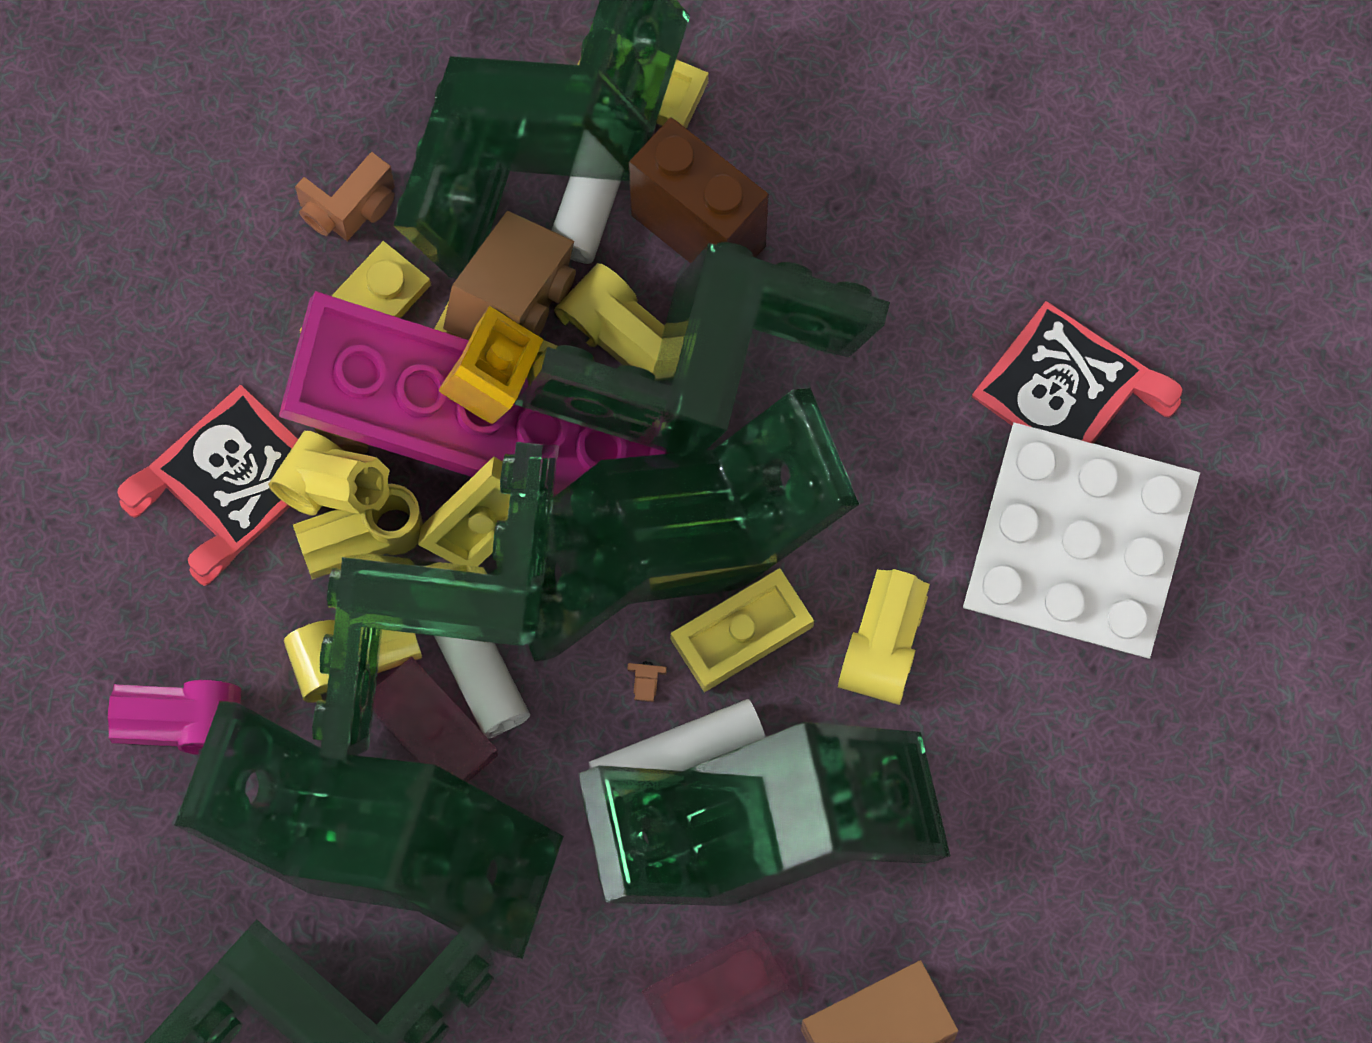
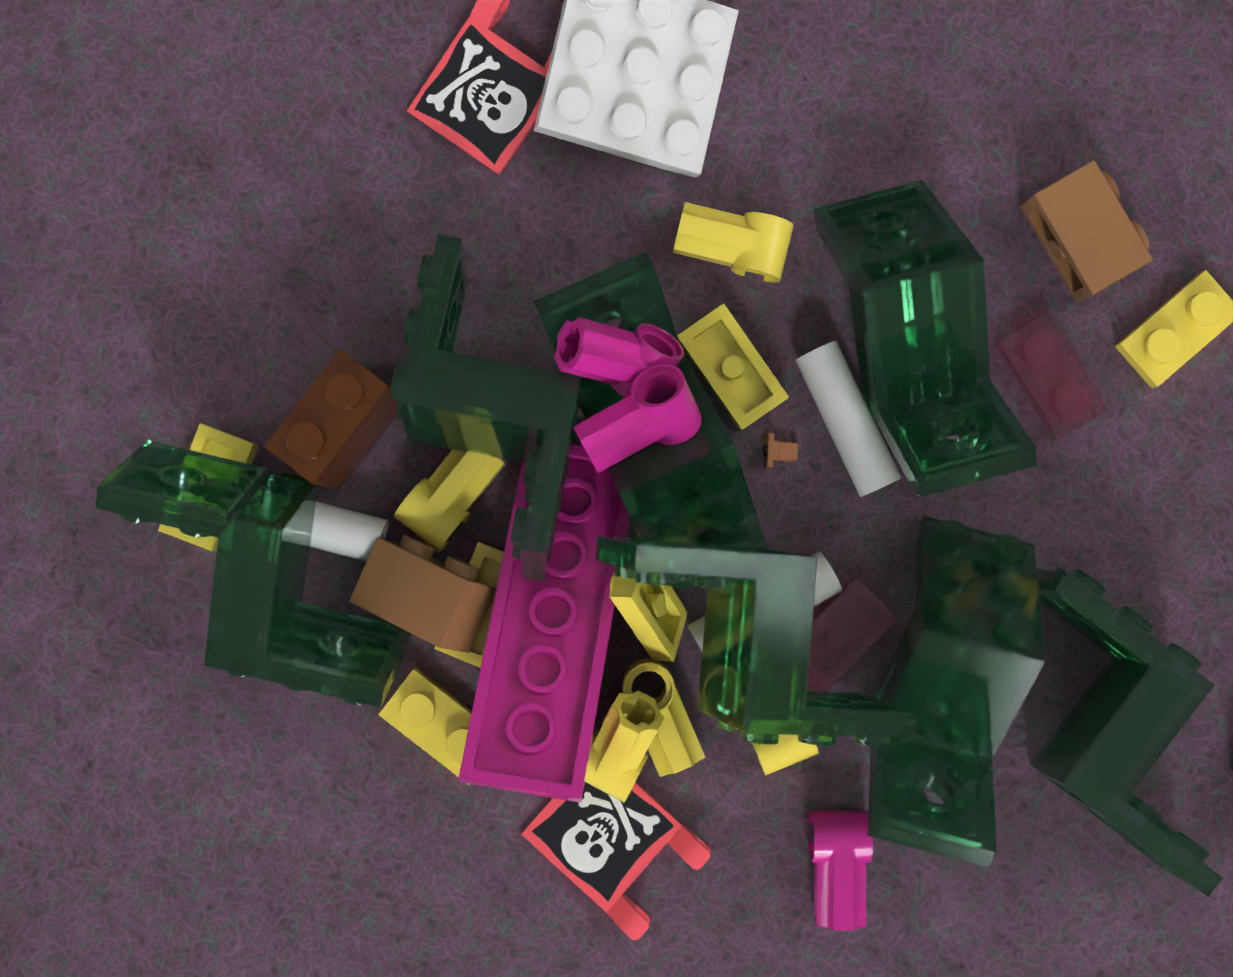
camera: 90 degrees left, 15 degrees up
(361, 197) = (338, 738): nougat bracket -> none
(492, 366) = (518, 600): yellow slope -> none
(688, 502) = (656, 411): none -> dark pink piece
(741, 491) = (613, 353): none -> dark pink piece

